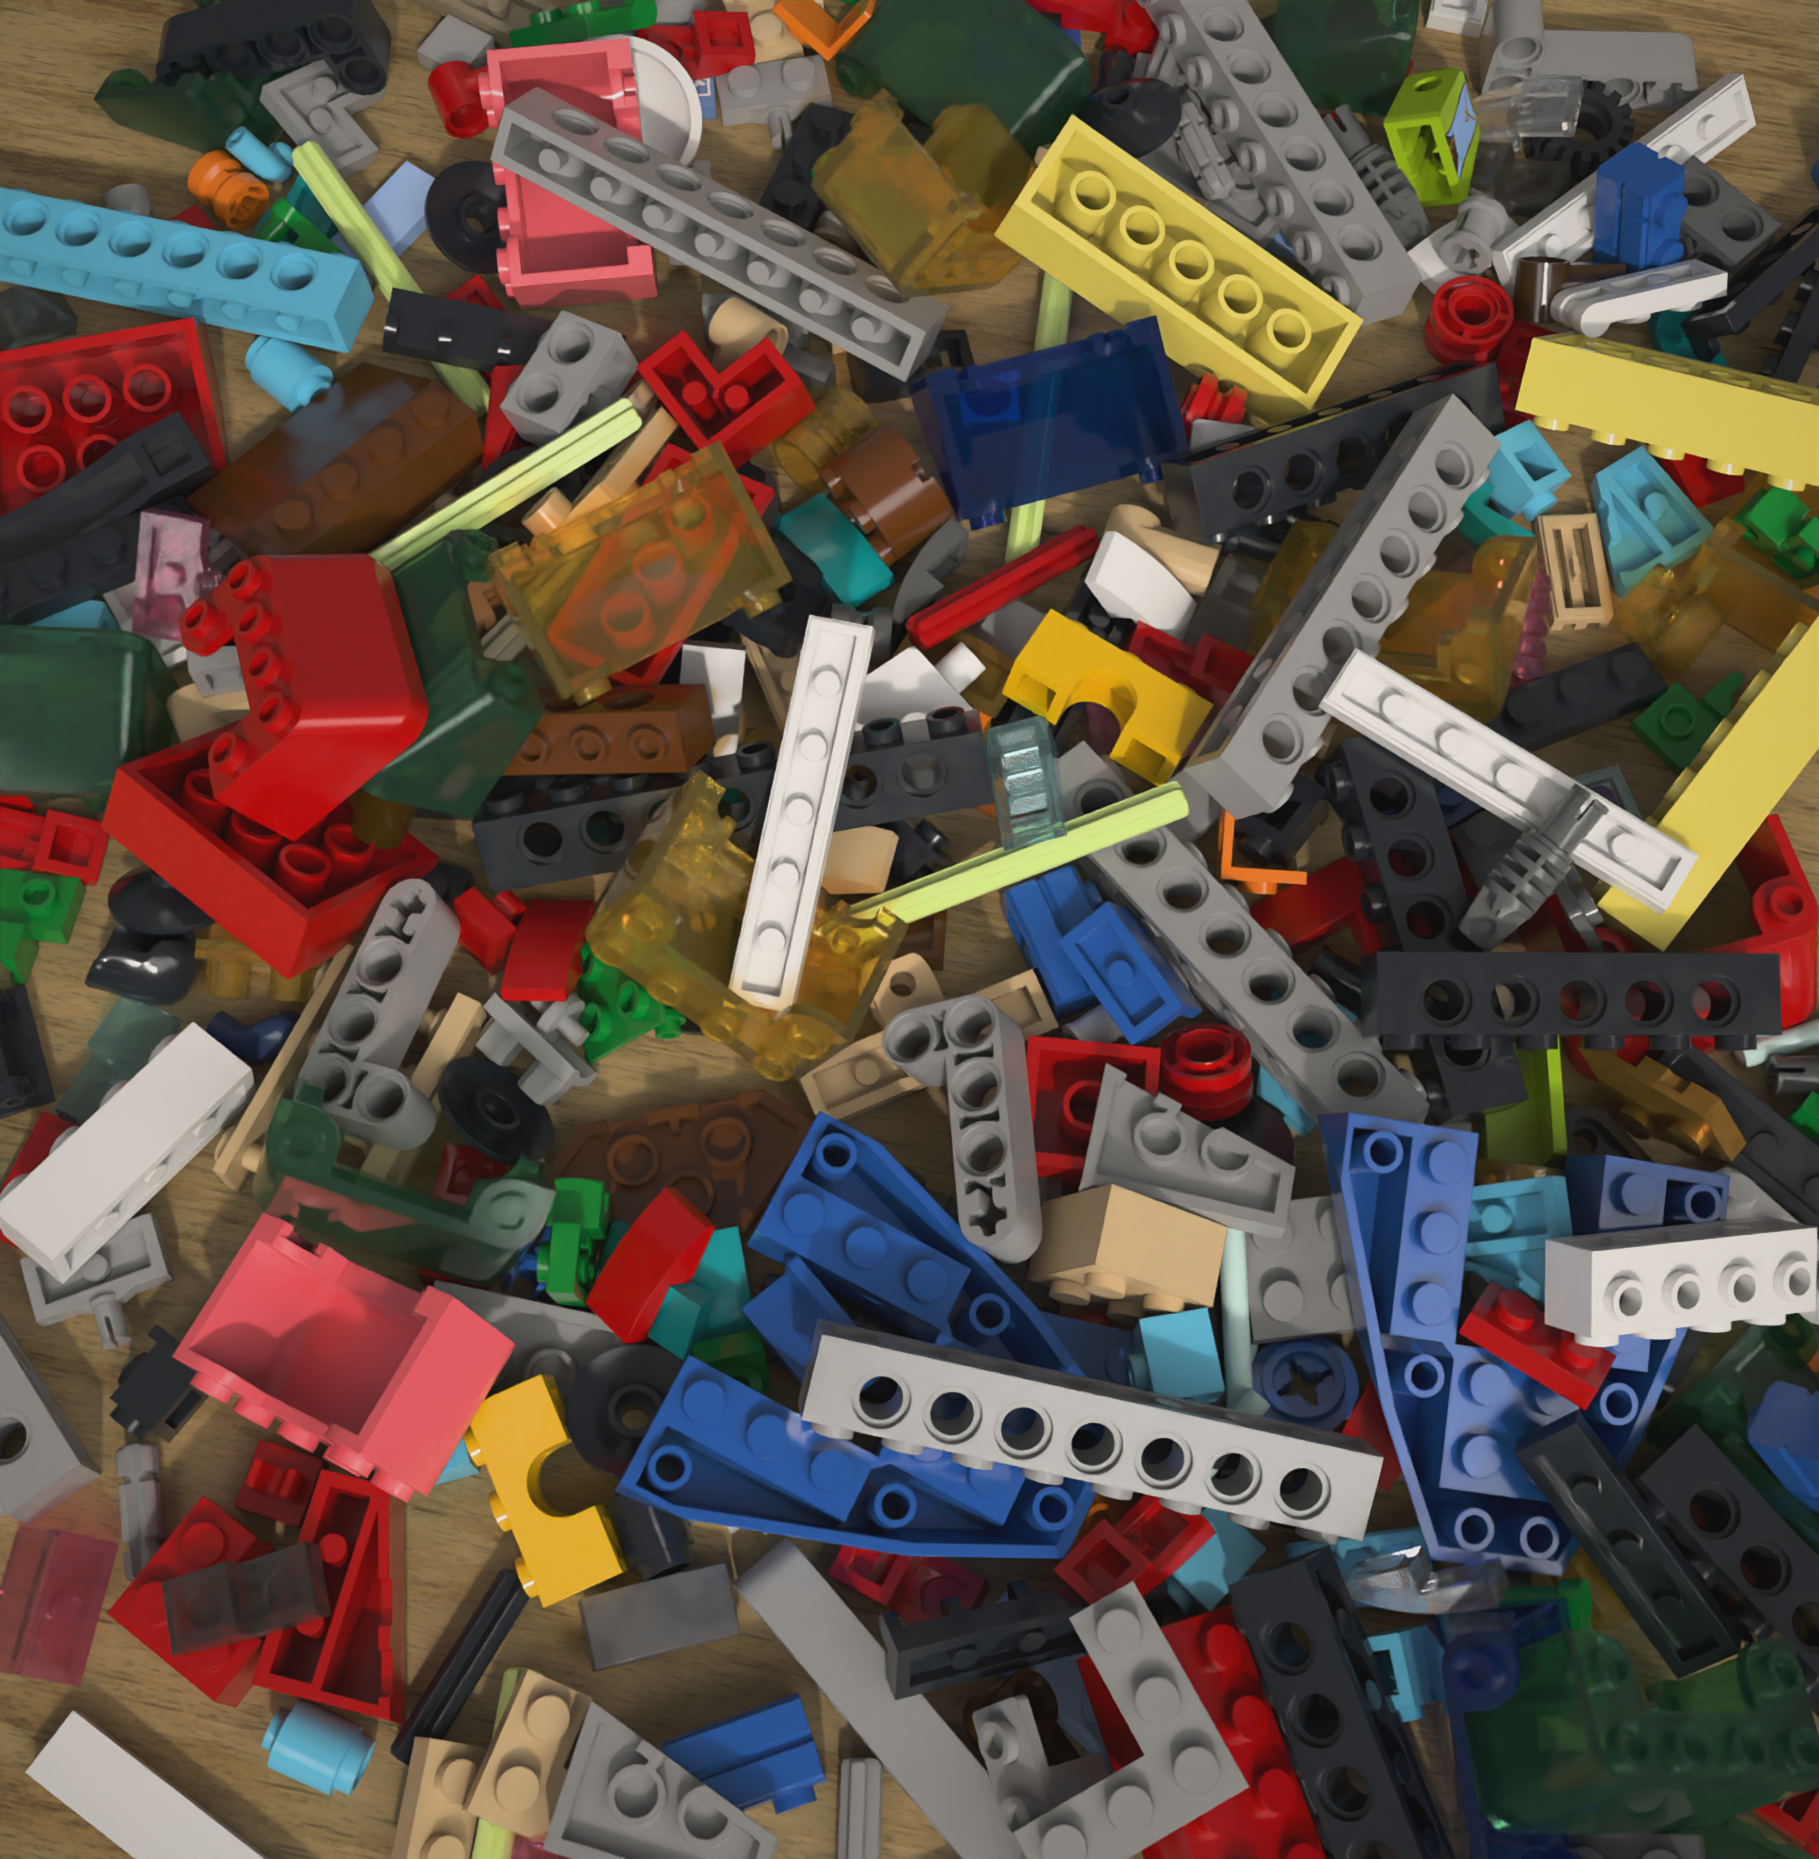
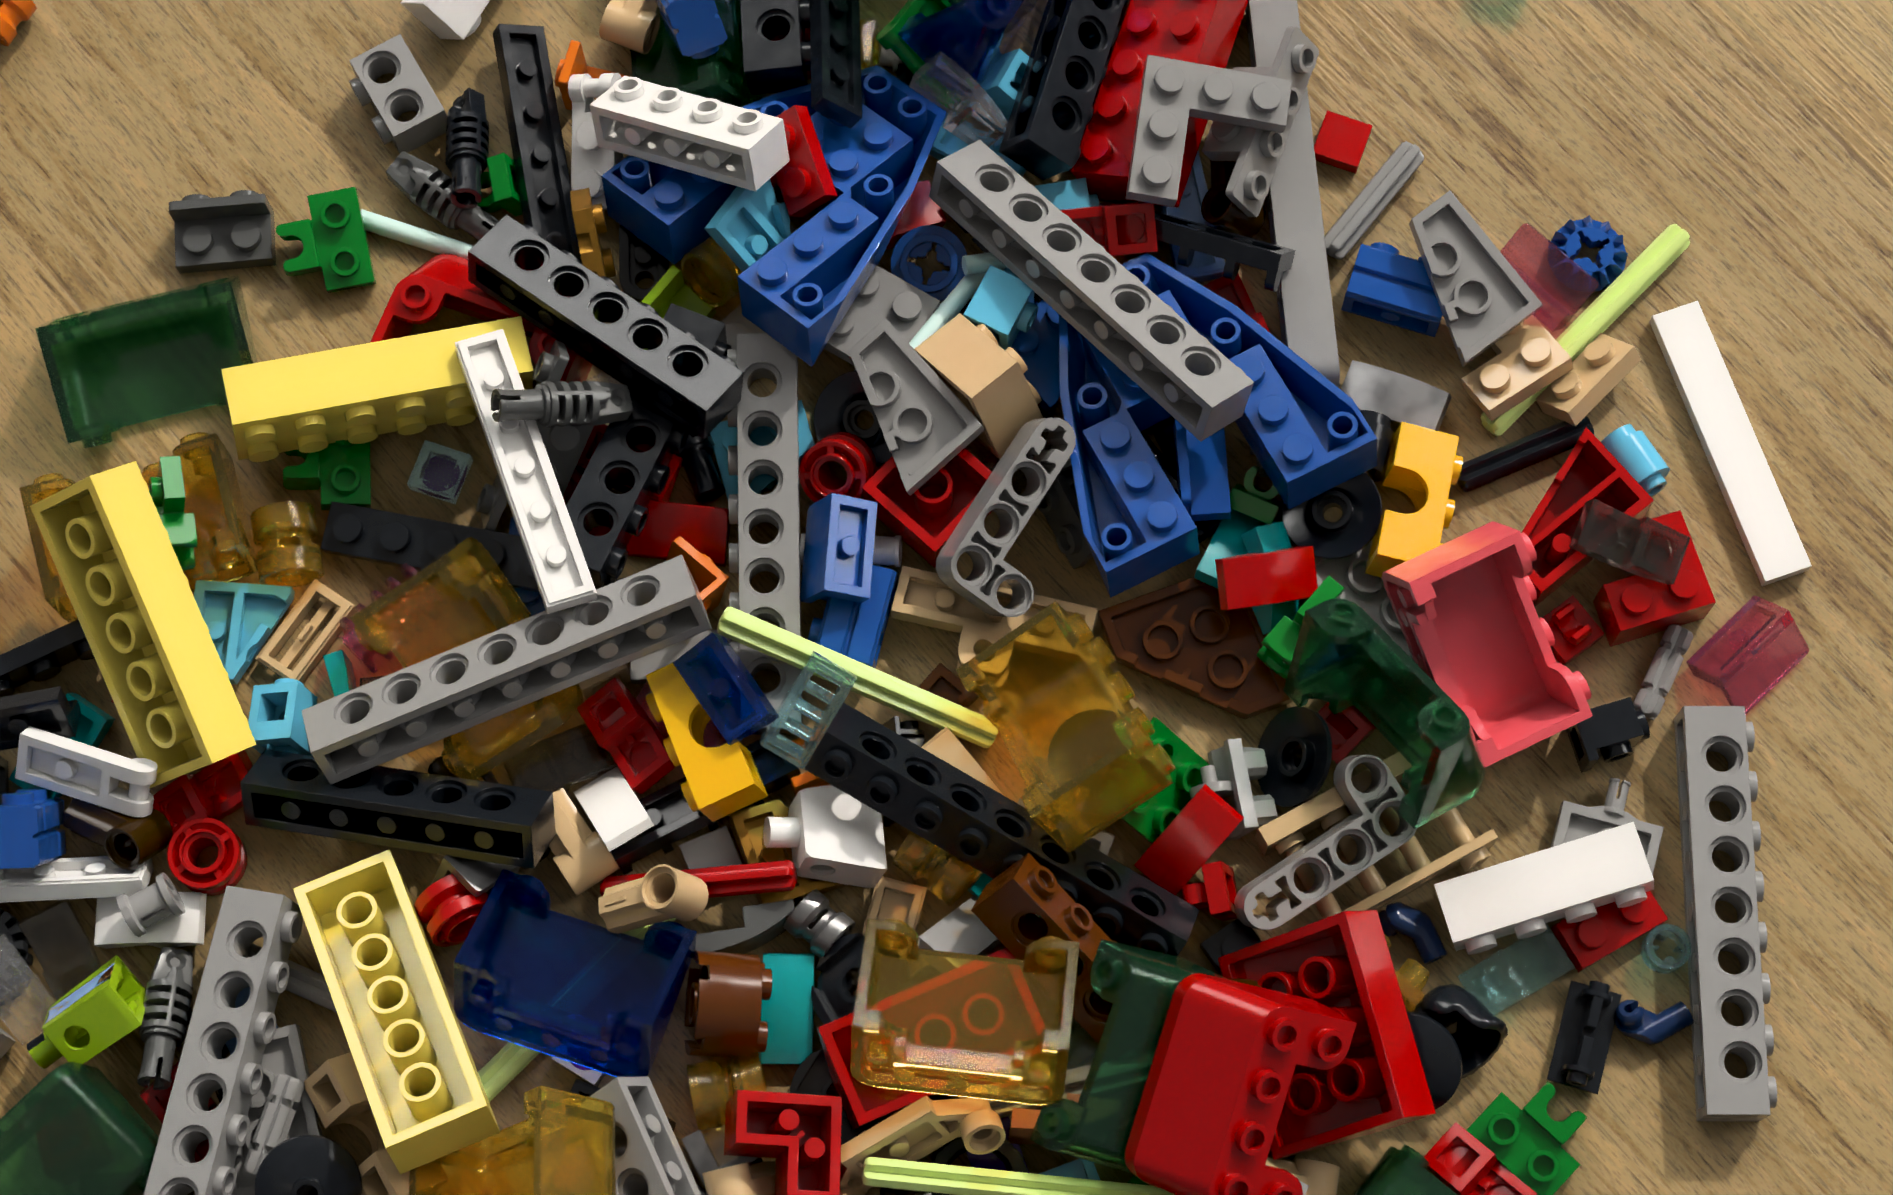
camera: 140 degrees left, 5 degrees up
(801, 812) = (973, 773): white tile -> none
(1028, 525) = (652, 899): none -> tan piece
(1118, 731) = (725, 688): none -> clear blue slope

